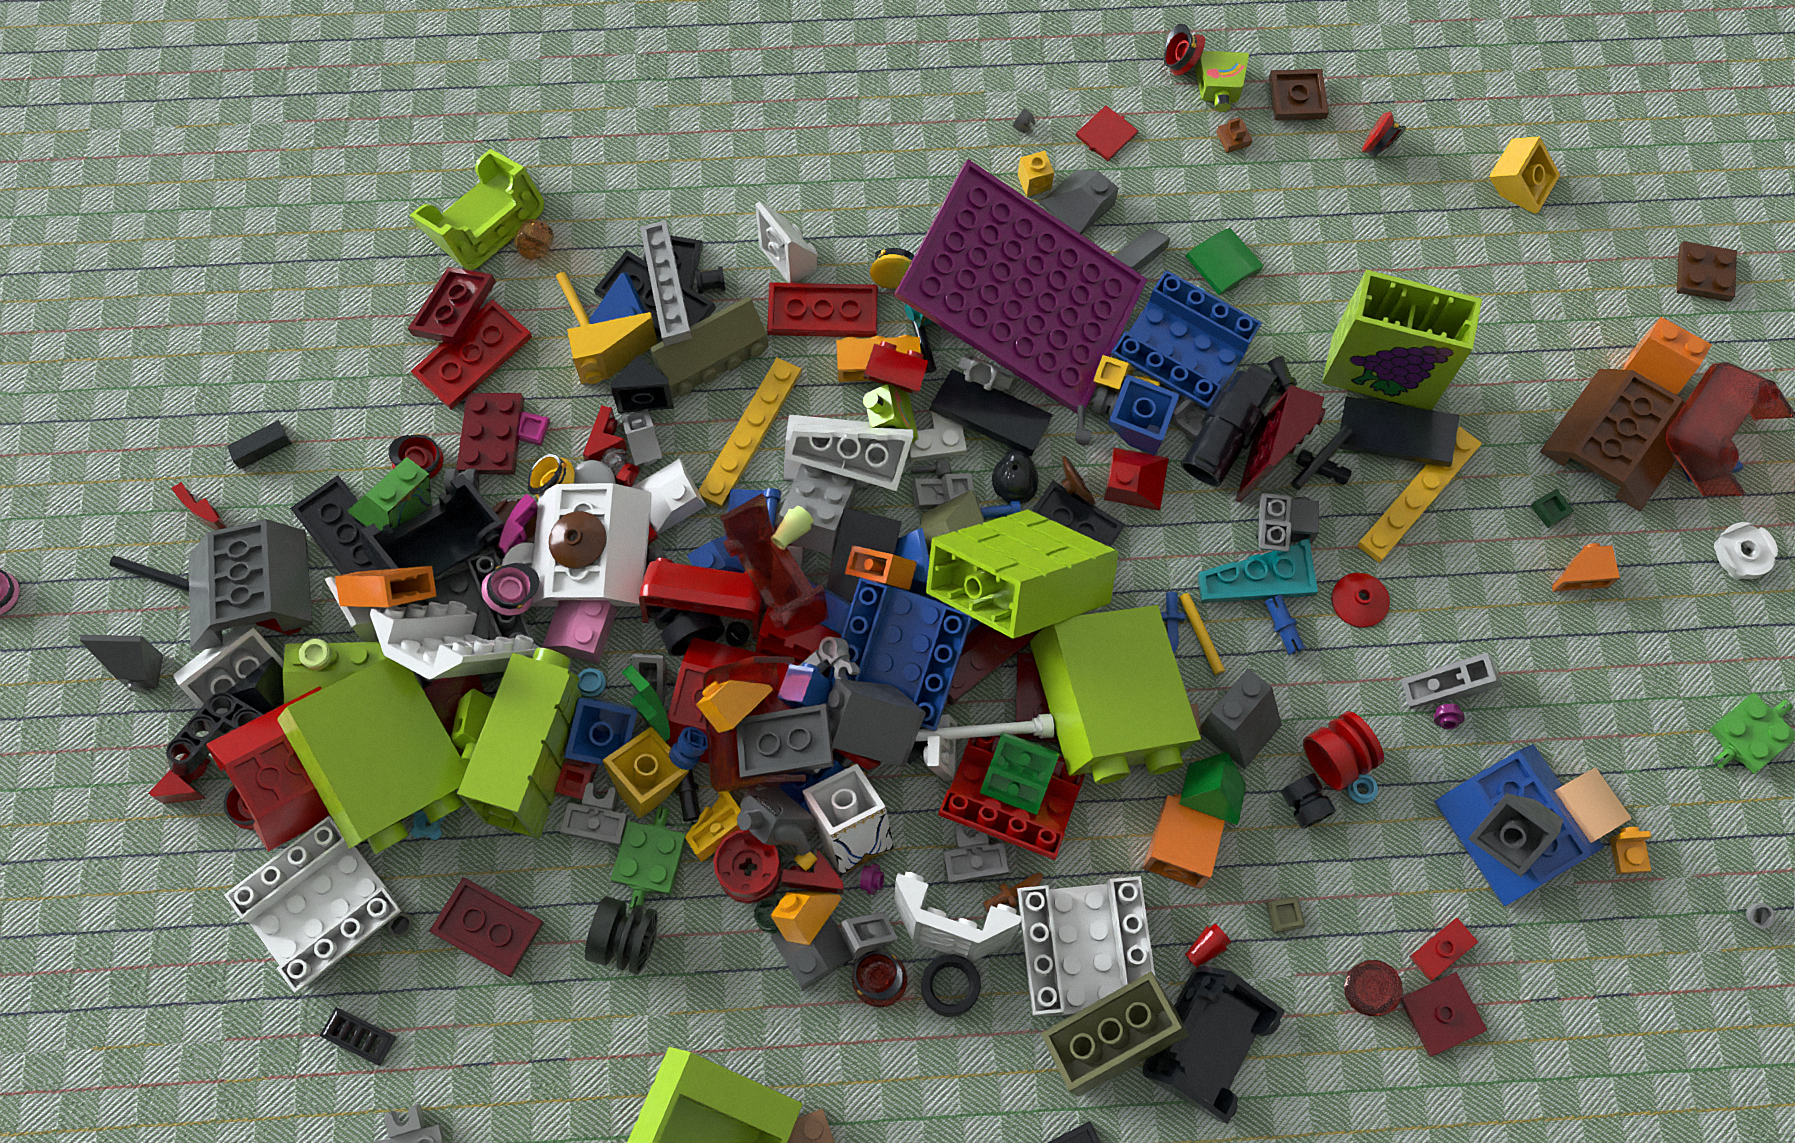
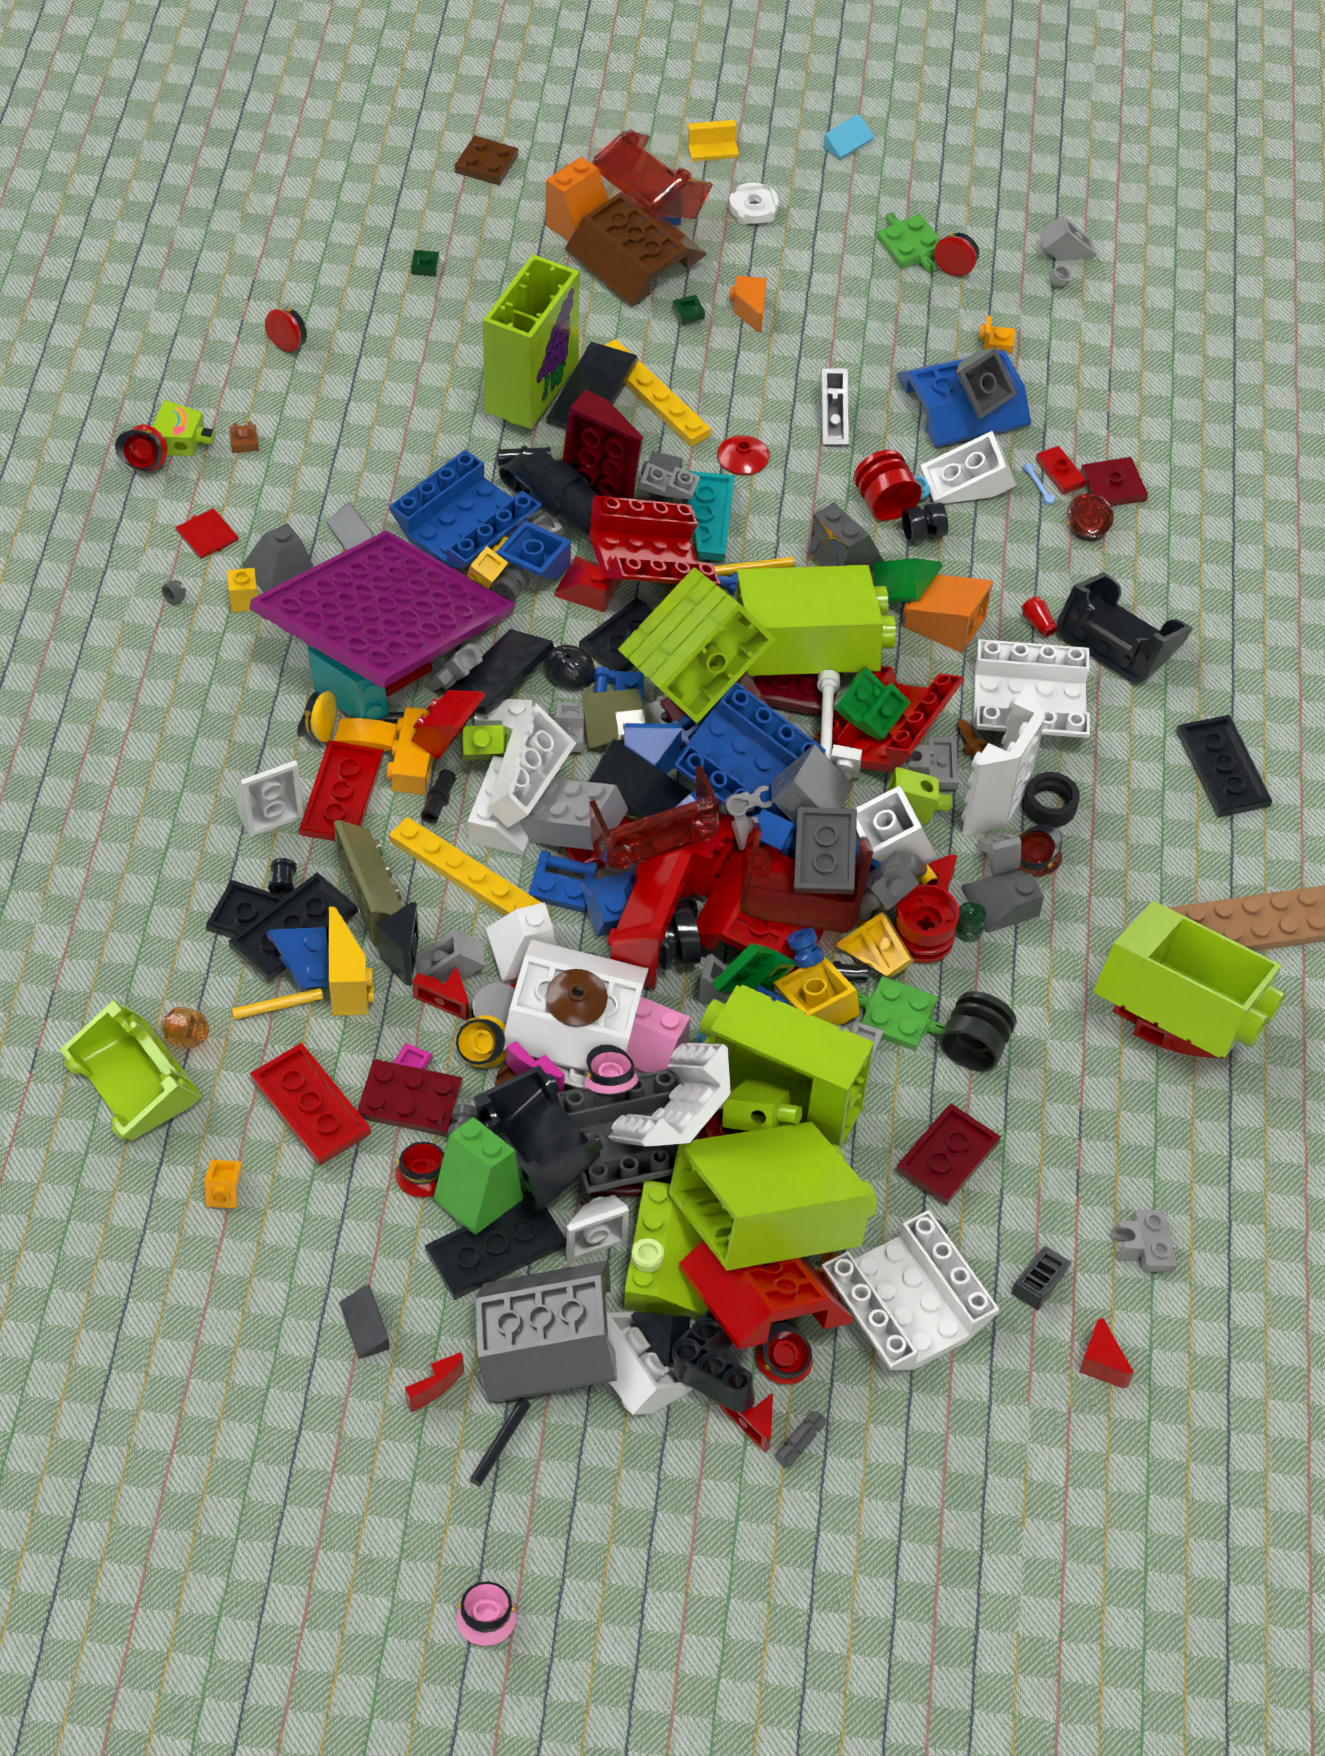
camera: 80 degrees left, 15 degrees down
(127, 658) = (610, 1457): dark grey slope -> none
(167, 828) = (800, 1438): none -> dark grey axle
(265, 1108) = (1105, 1358): none -> red slope
(383, 303) = (222, 1183): none -> light orange bracket
(385, 587) = (607, 1152): orange slope -> none
(452, 305) = (249, 1108): dark red plate -> none
(614, 459) = (471, 984): clear plate -> none
(628, 474) = (493, 975): red tile -> none
(665, 283) = (291, 895): light grey plate -> none
(730, 702) = (786, 879): light orange slope -> none
(792, 527) = (612, 809): yellowish green cone -> none
(803, 914) = (978, 886): light orange slope -> none
(830, 390) = (438, 796): none -> black pin
(872, 879) = (946, 840): magenta plate -> none
(881, 567) = (655, 765): orange slope -> none
(890, 314) = (367, 733): none -> light orange slope
(913, 823) = (921, 793): none -> lime torso
(1074, 482) = (590, 616): reddish brown dish -> none
(1082, 435) = (535, 612): dark grey hand -> none
(1114, 1034) = (1114, 681): olive slope -> none
(1176, 519) = (645, 540): none -> red slope
(1224, 261) = (382, 472): green slope -> none
(1285, 625) = (759, 506): blue pin -> none
(1285, 914) = (1017, 563): olive tile -> none
(1298, 94) = (216, 381): reddish brown plate -> none
(1396, 940) = (1048, 498): none -> light blue hinge
(1401, 843) = (969, 472): none -> white slope
(1448, 716) = (864, 418): magenta plate -> none
(1525, 173) = (354, 246): yellow slope -> none
(1530, 243) = (425, 263): none -> dark green plate
(1593, 804) = (956, 346): light nougat slope -> none
(1742, 785) = (956, 254): none -> red piece

